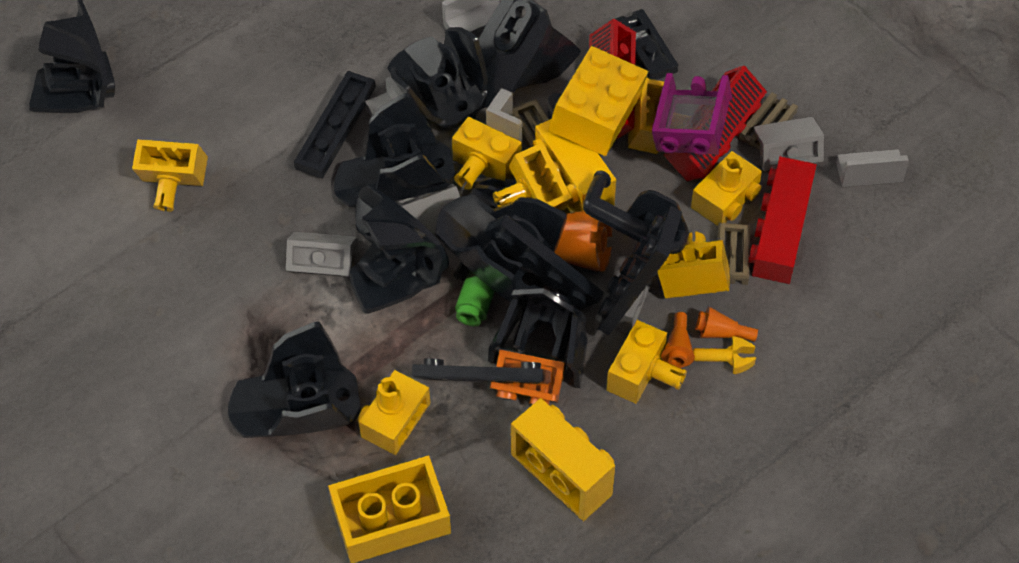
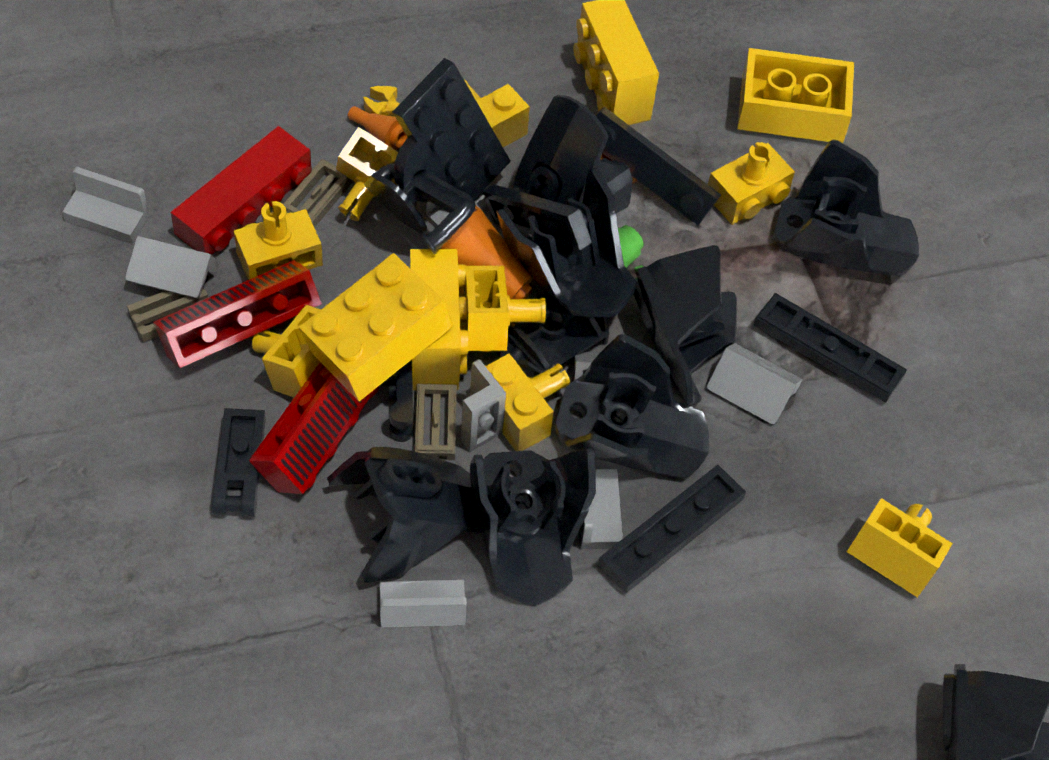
camera: 160 degrees left, 0 degrees up
(273, 302) = (830, 347): none -> black plate
(691, 118) = (275, 281): magenta window -> none

